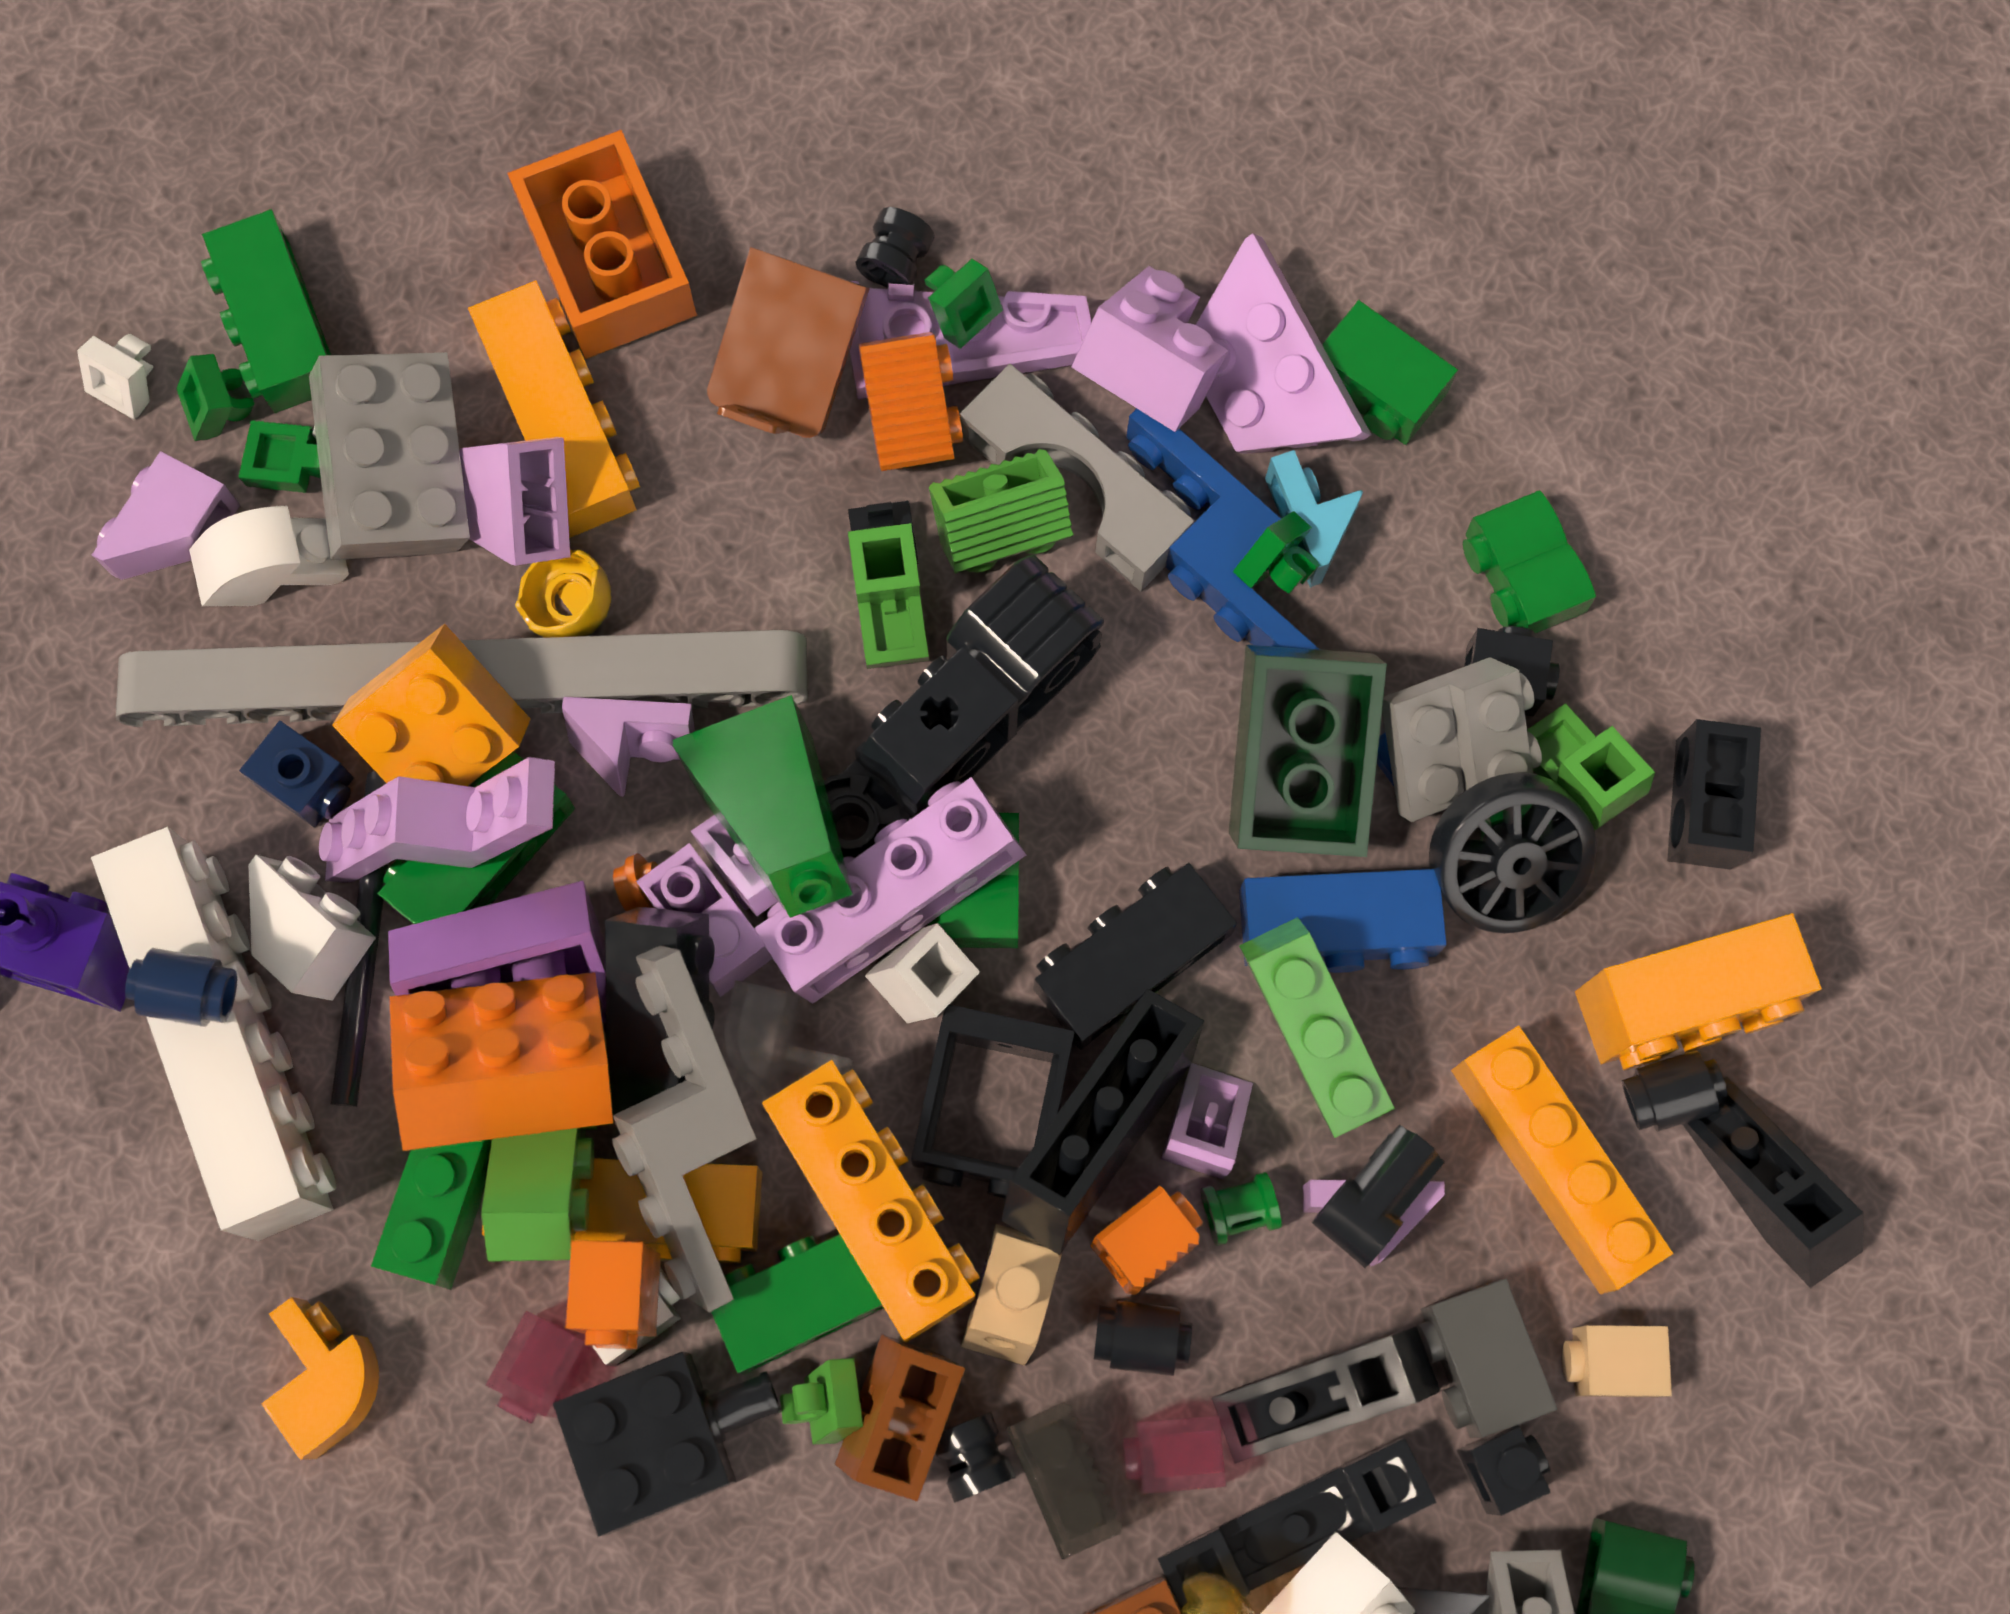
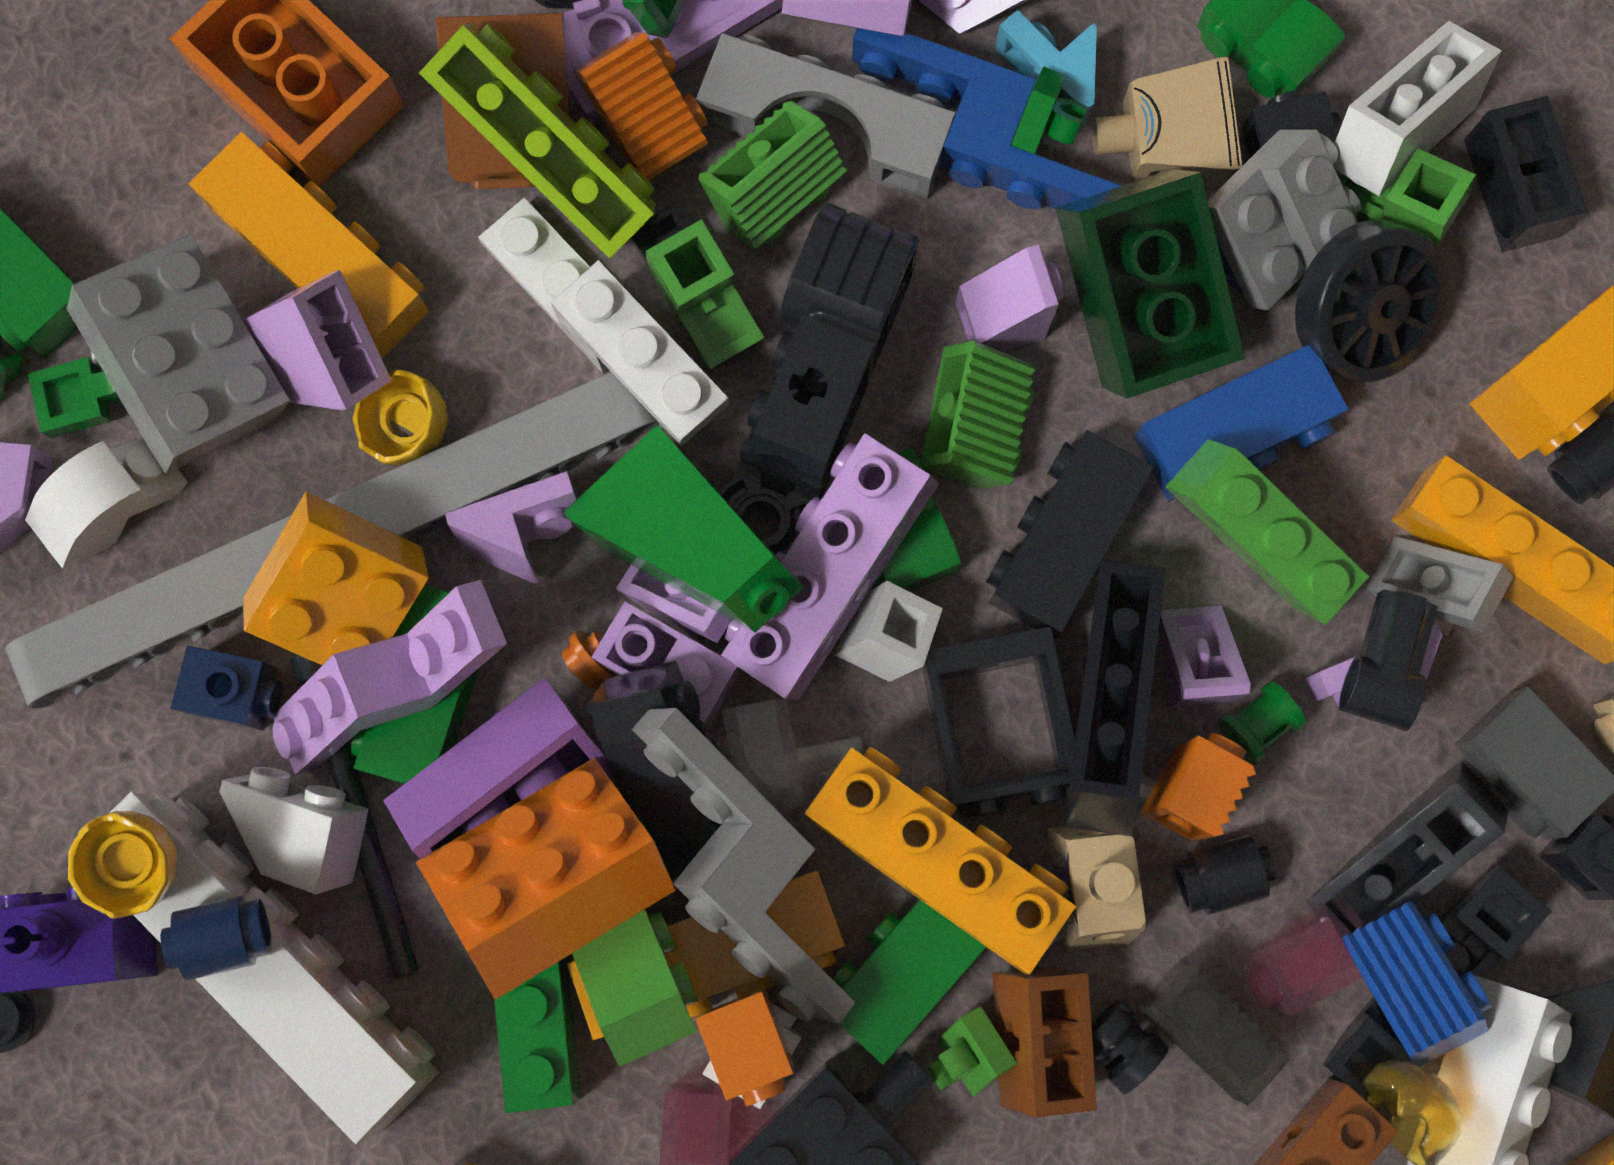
camera: 20 degrees left, 5 degrees up
(129, 885) = (122, 863): none -> yellow hair
(787, 583) = (605, 322): none -> white bracket
(796, 391) = (540, 139): none -> lime brick
(1095, 809) = (977, 415): none -> bright green brick
(1169, 717) = (1011, 301): none -> lavender slope
(1274, 1514) = (1416, 983): none -> blue brick
(1401, 615) = (1176, 123): none -> tan torso
(1475, 1151) = (1457, 583): none -> light grey slope
(1629, 686) = (1413, 106): none -> white brick

